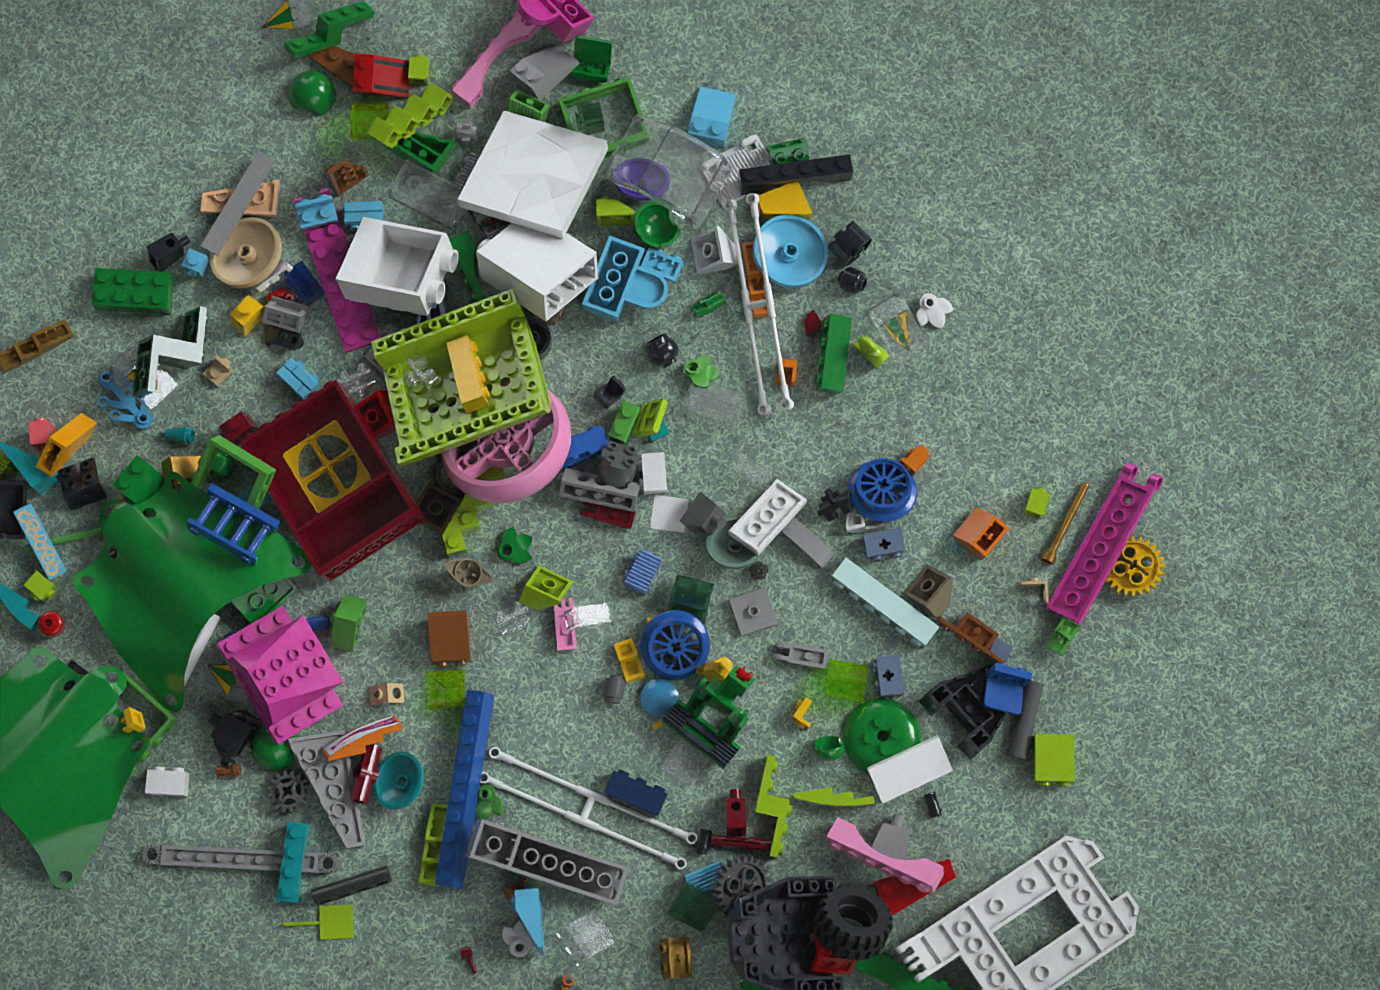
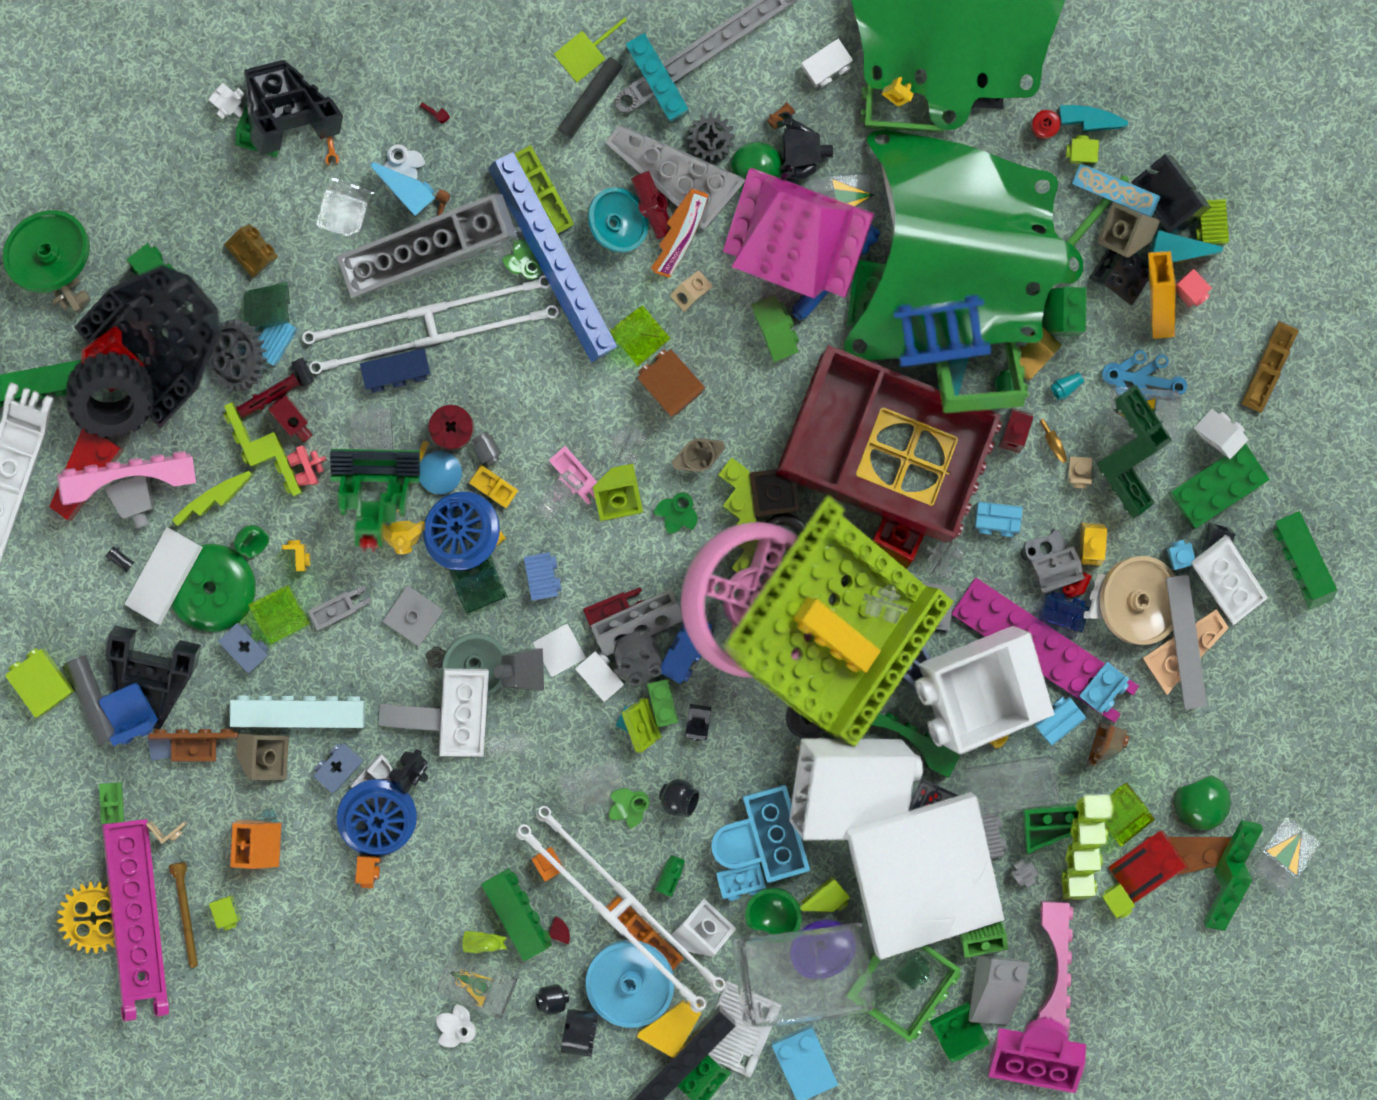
camera: 140 degrees right, 10 degrees up
(54, 507) = (1127, 230): none -> dark tan slope
(102, 323) = (1221, 433): none -> white brick
(115, 199) = (1305, 560): none -> green wedge
(175, 221) = (1229, 580): none -> white tile
(220, 402) = (1054, 442): none -> pearl gold hand
(633, 713) = (451, 414): none -> dark red brick
(750, 781) = (301, 457): none -> coral hips

